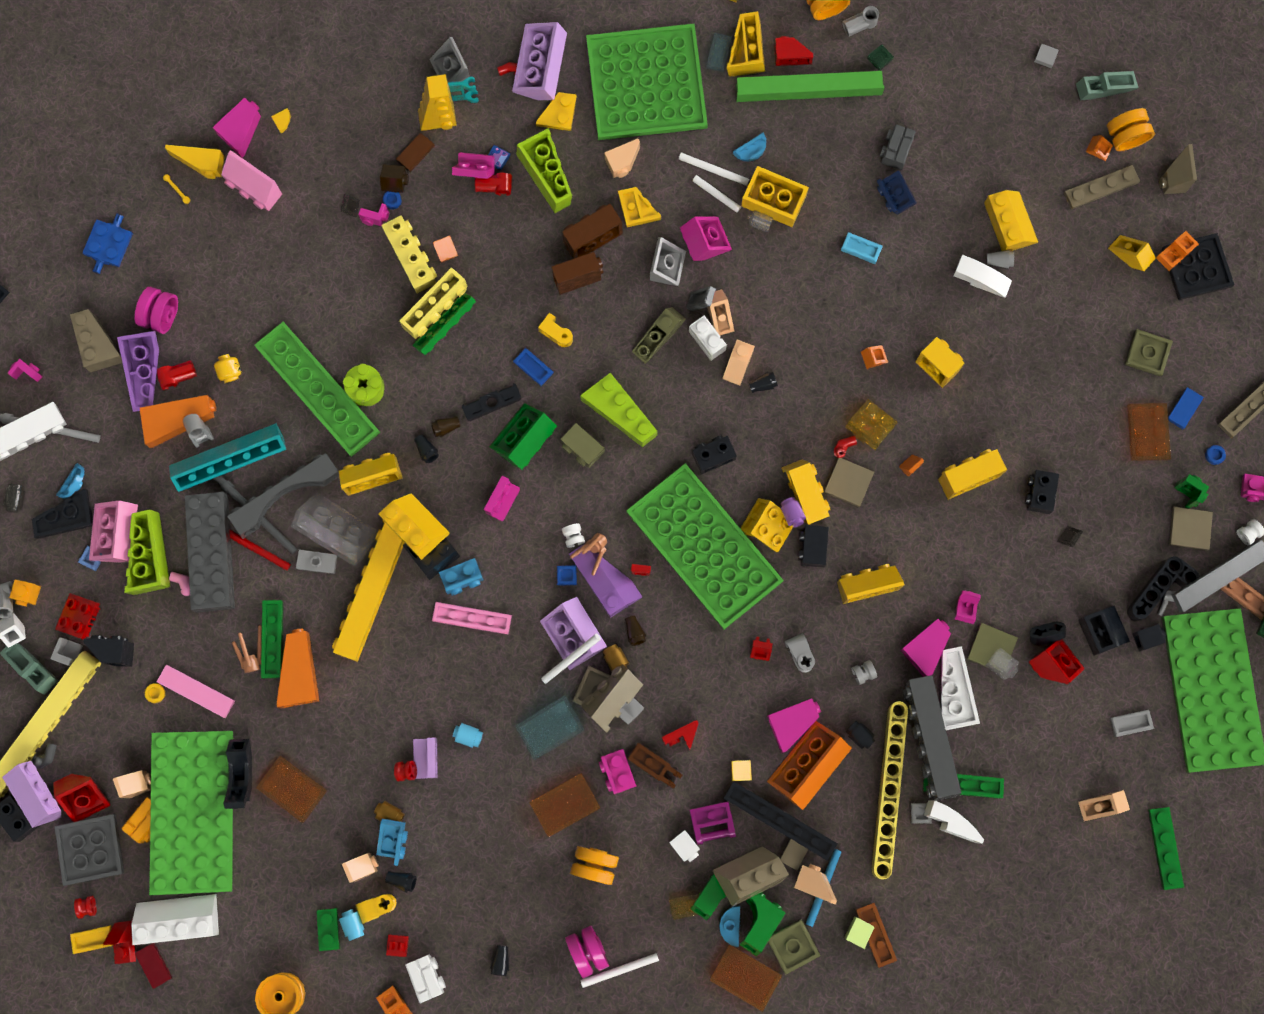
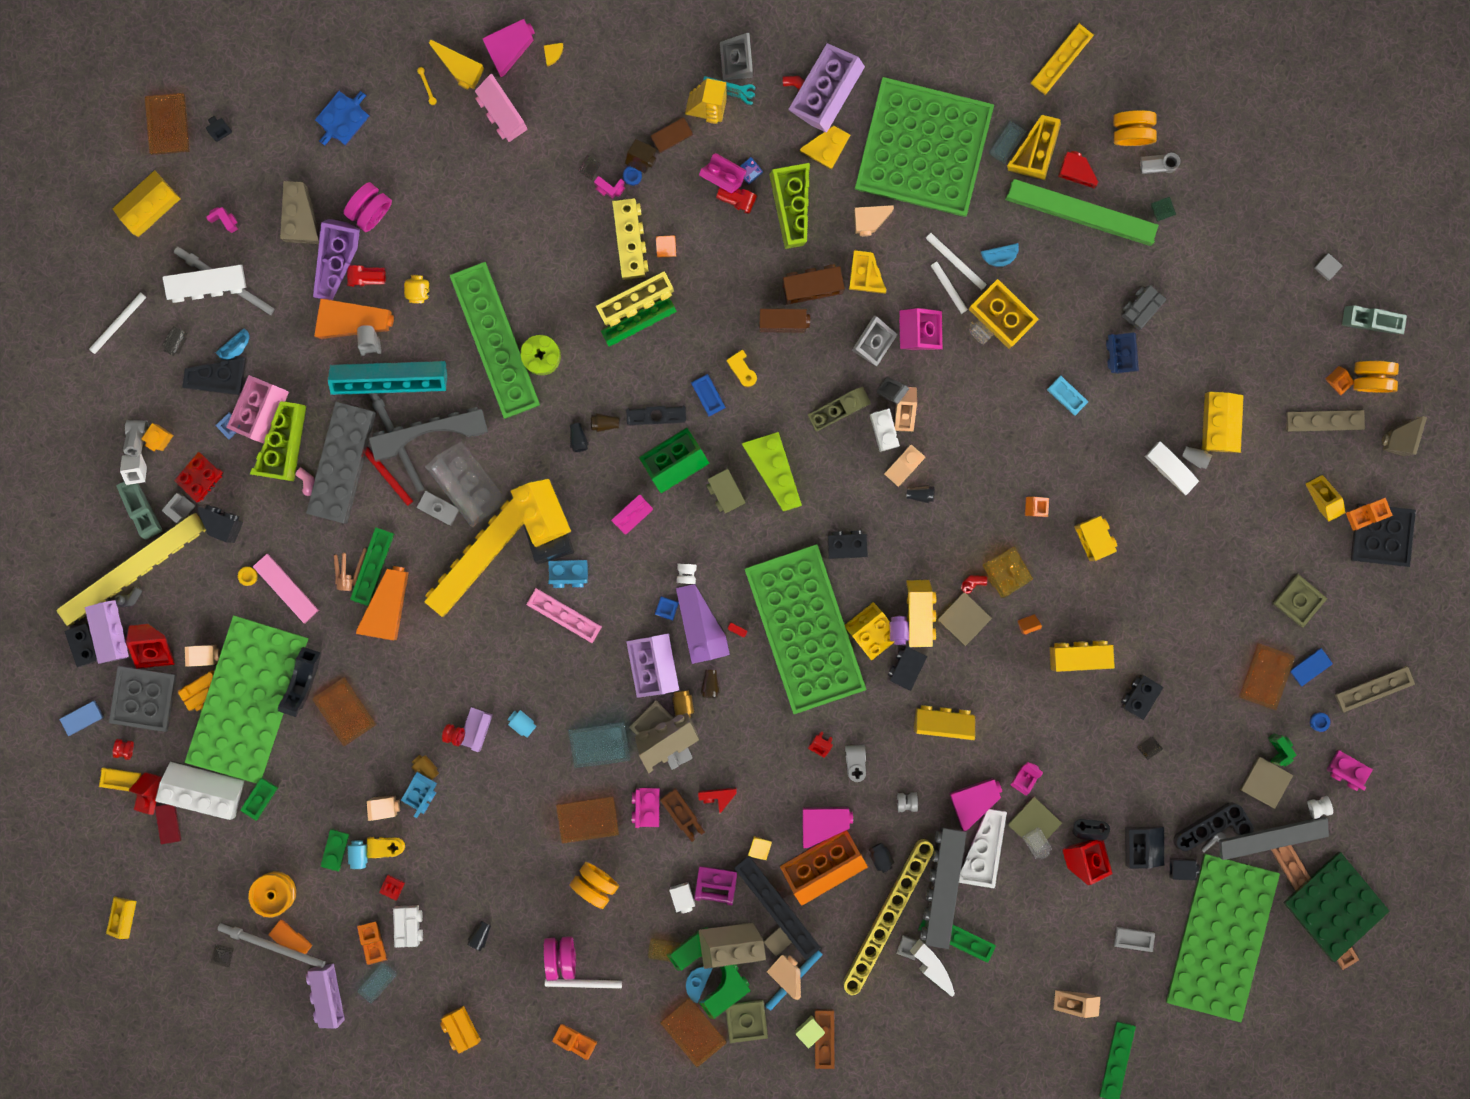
camera: 20 degrees right, 10 degrees up
(34, 892) = (81, 718): none -> medium blue tile
(236, 906) = (259, 799): none -> green plate
(370, 474) = (516, 443): yellow slope -> none
(402, 881) = (416, 832): black cone -> none
(571, 658) = (641, 690): white bar -> none
(595, 545) = (703, 590): nougat plant -> none

